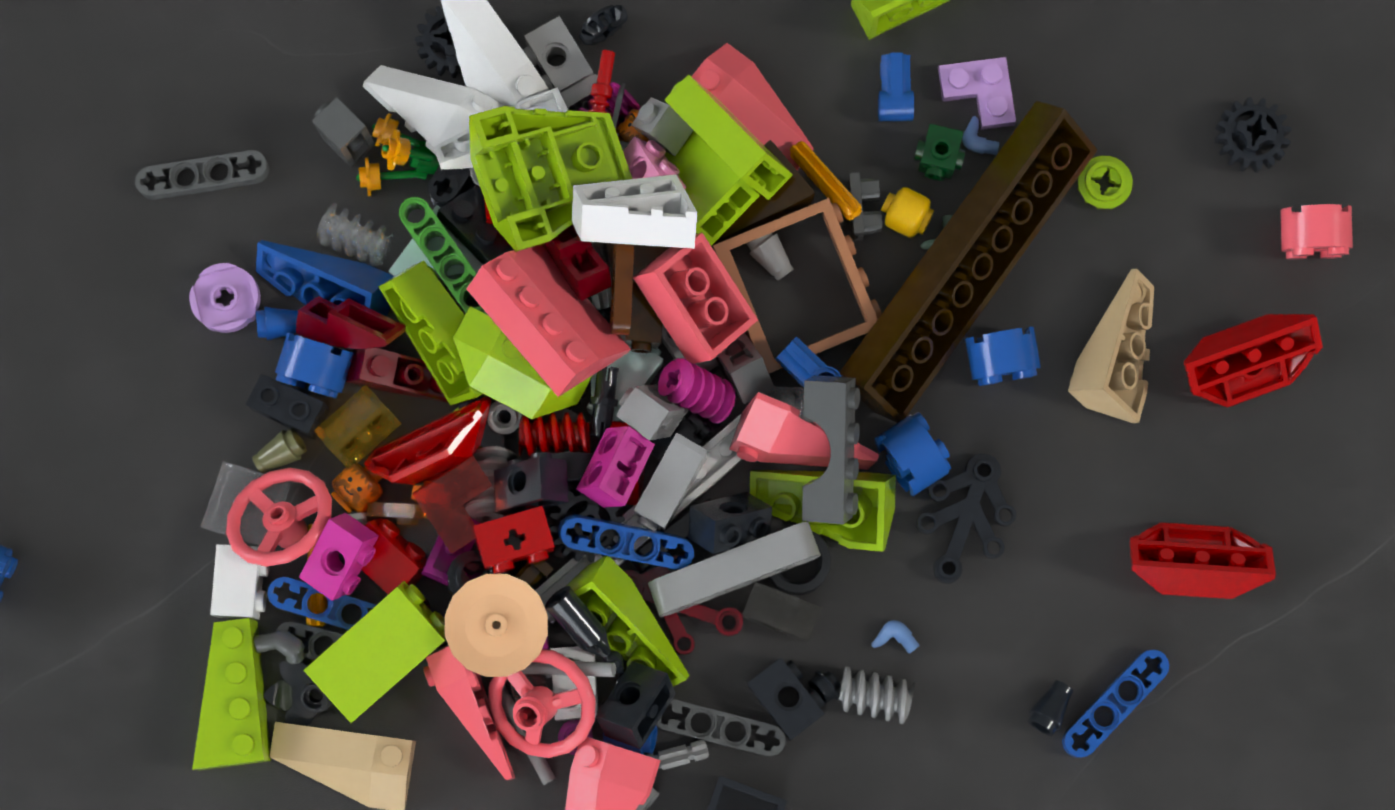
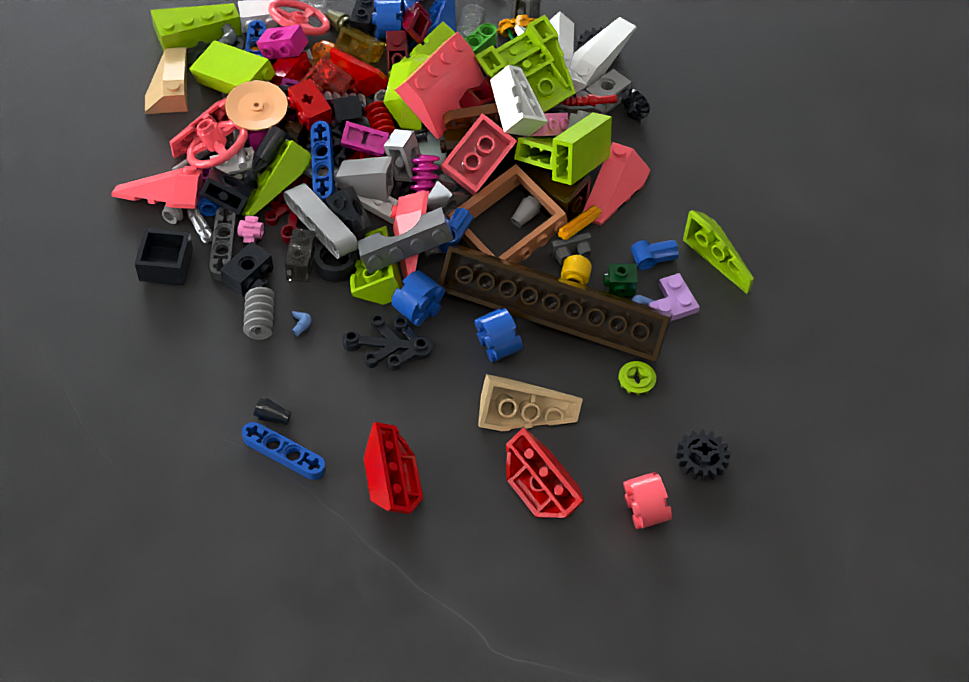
camera: 70 degrees right, 25 degrees down
(711, 680) = (250, 229): none -> bright pink gear

